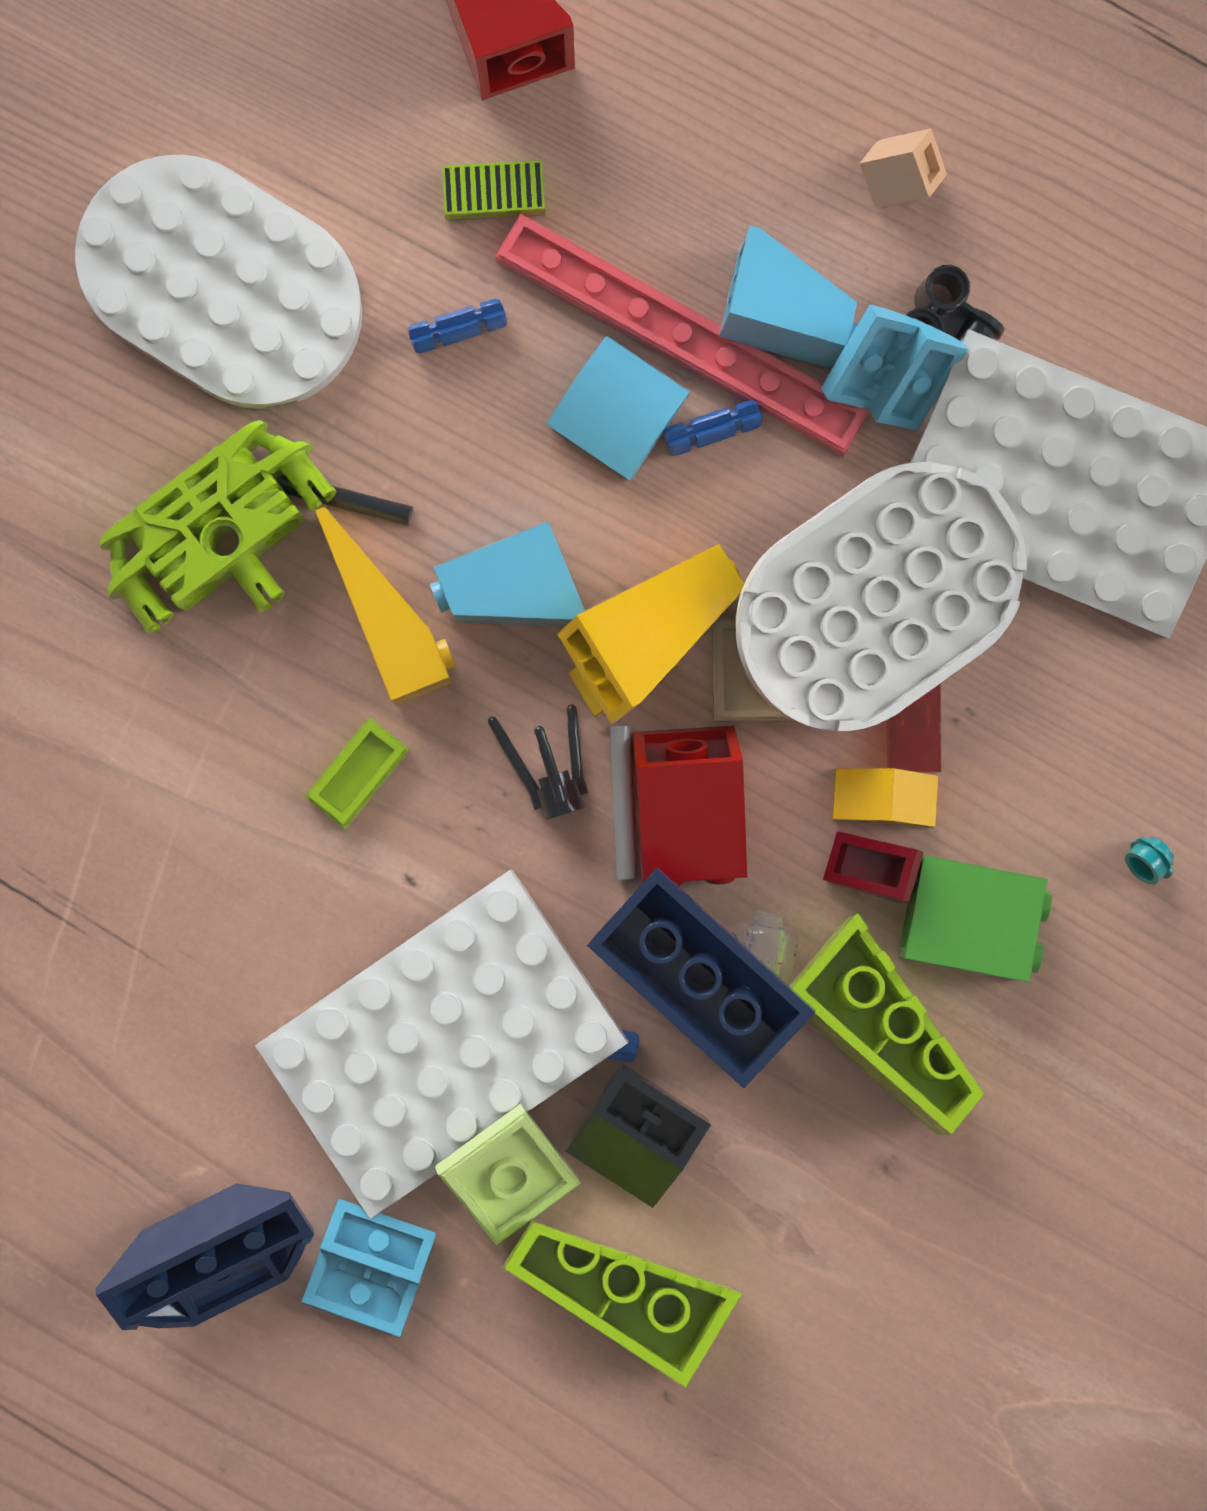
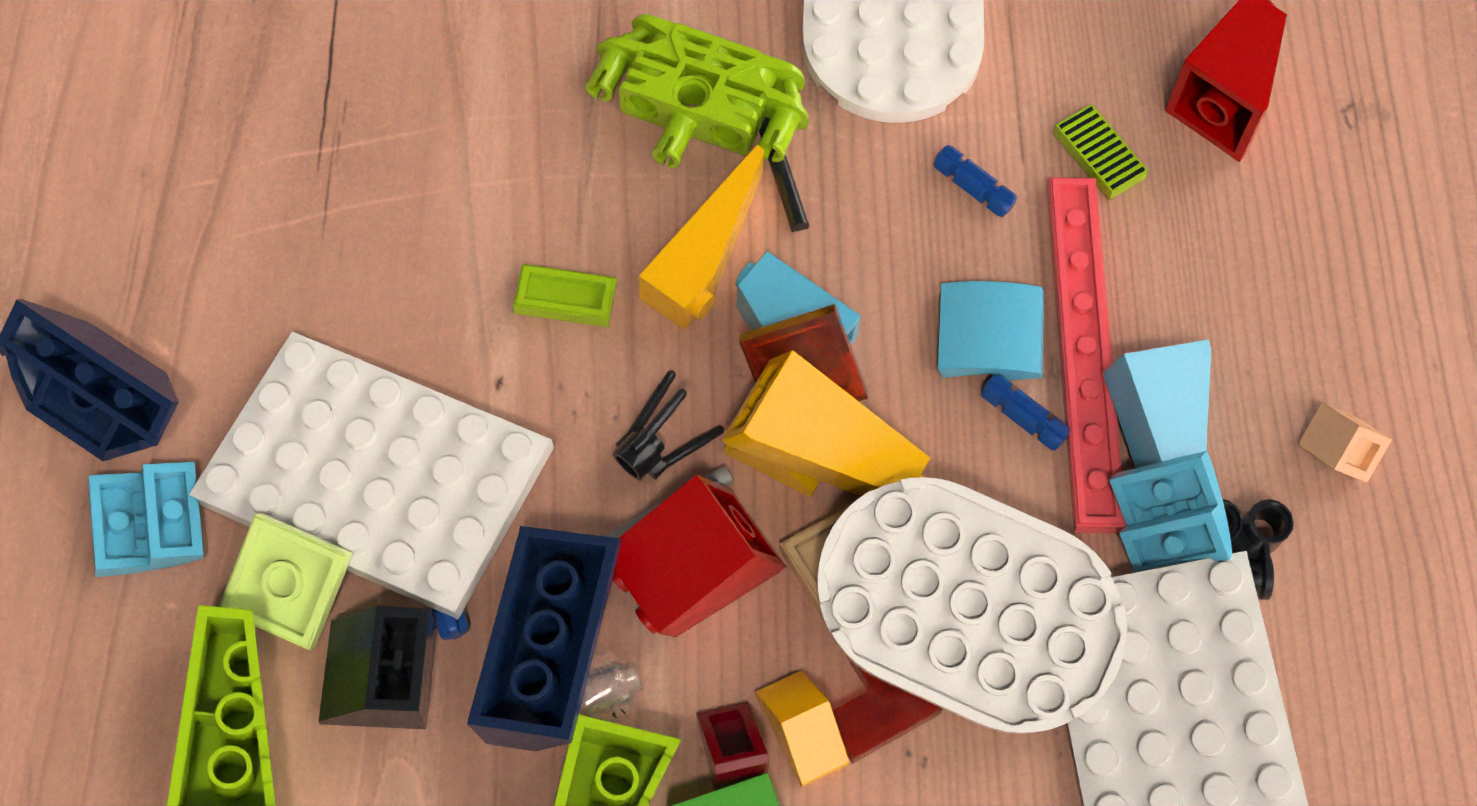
camera: 55 degrees right, 20 degrees down
(562, 590) = (817, 339): none -> clear red plate

